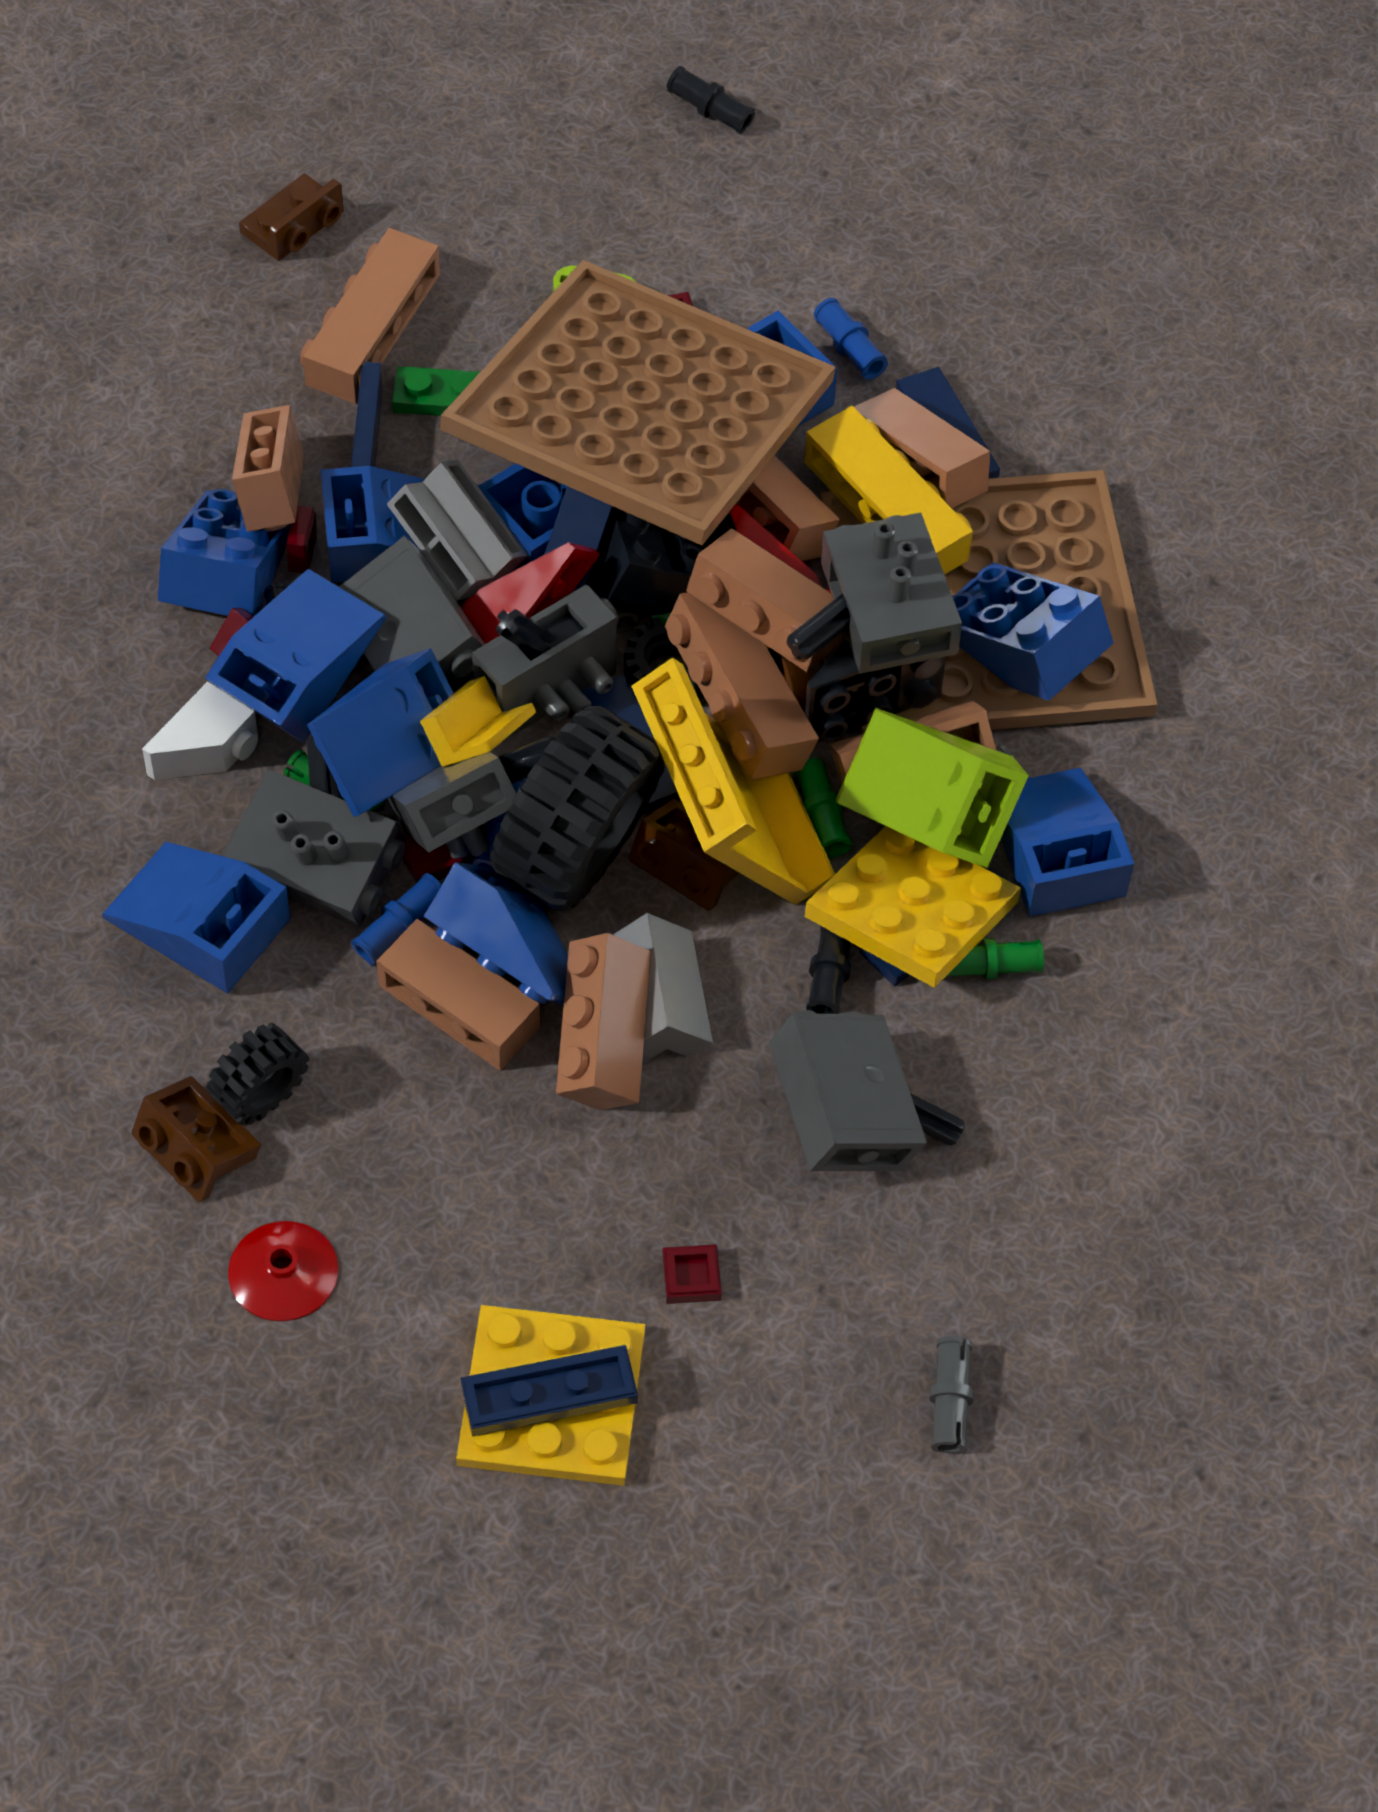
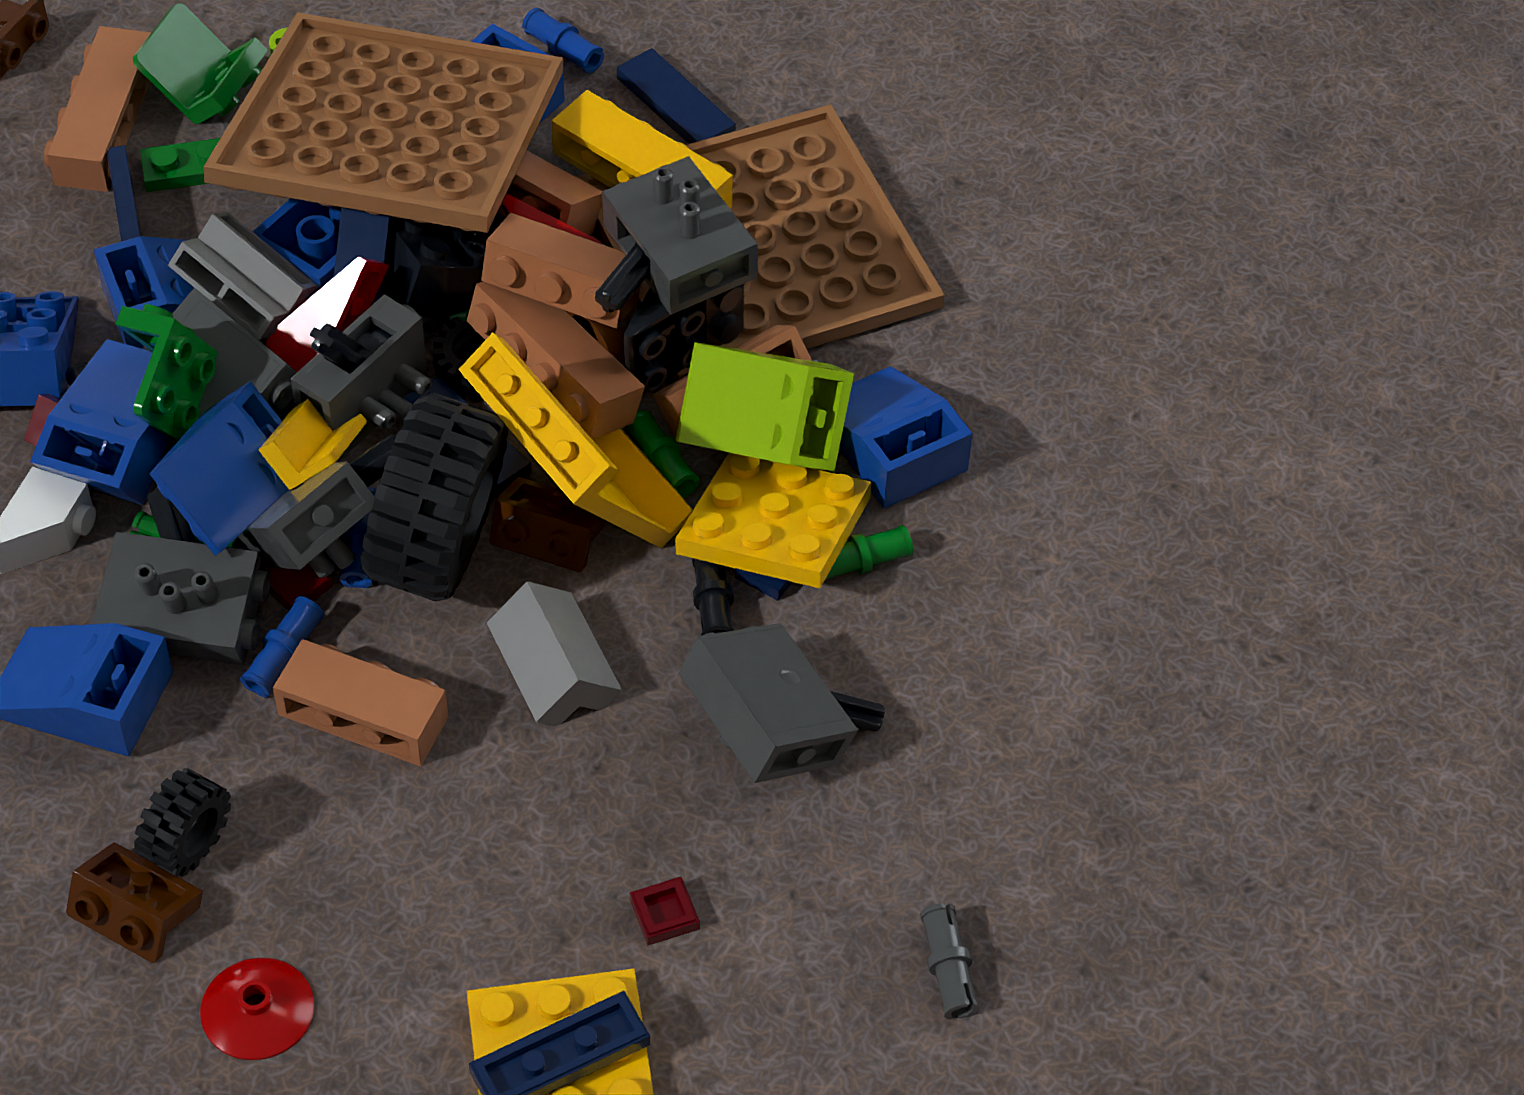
camera: 15 degrees left, 5 degrees down
(268, 468) = (41, 260): nougat brick -> none
(302, 540) = (89, 320): dark red tile -> none
(362, 621) = (176, 371): none -> green bracket
(473, 289) = (196, 66): none -> green bracket
(503, 927) = (394, 625): blue slope -> none
(603, 1022) = (513, 692): nougat brick -> none
(932, 446) = (675, 112): nougat brick -> none
(1030, 628) = (815, 251): blue slope -> none

